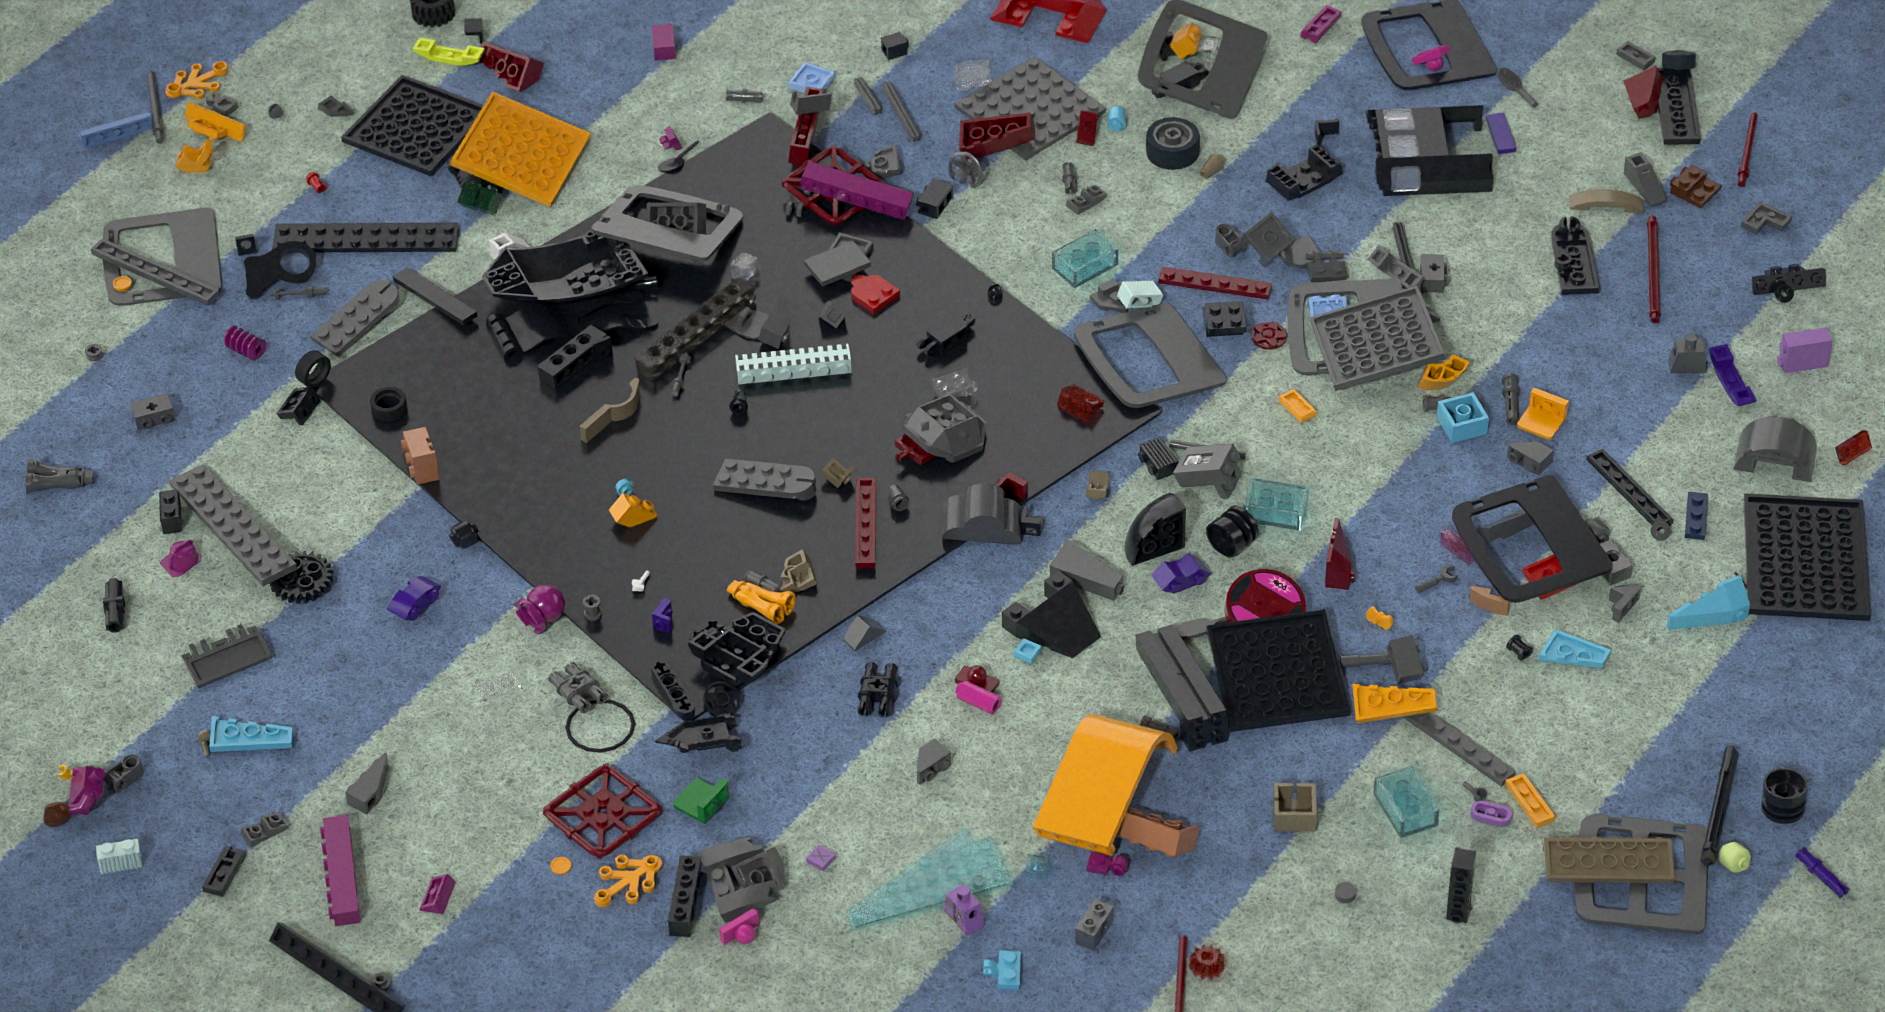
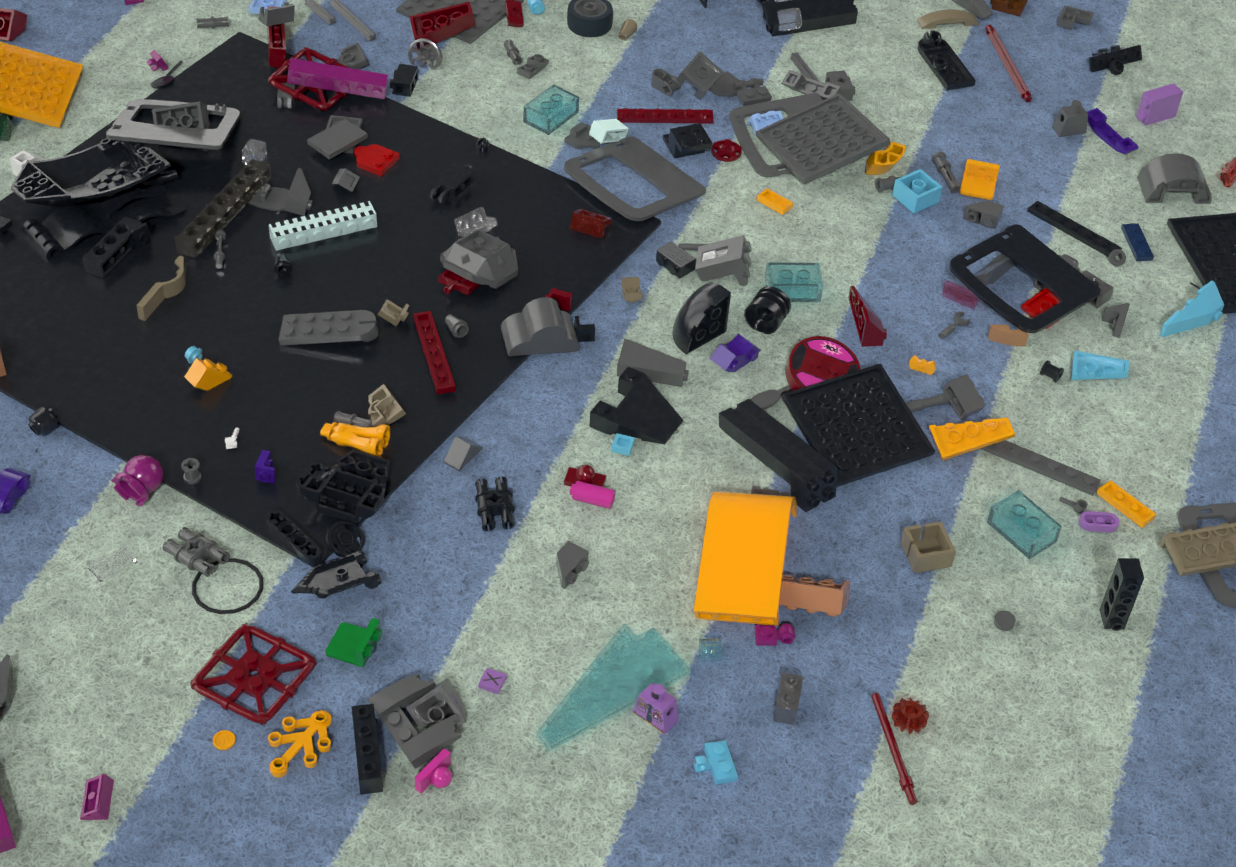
camera: 20 degrees left, 0 degrees up
(1306, 176) = (707, 28): black plate -> none

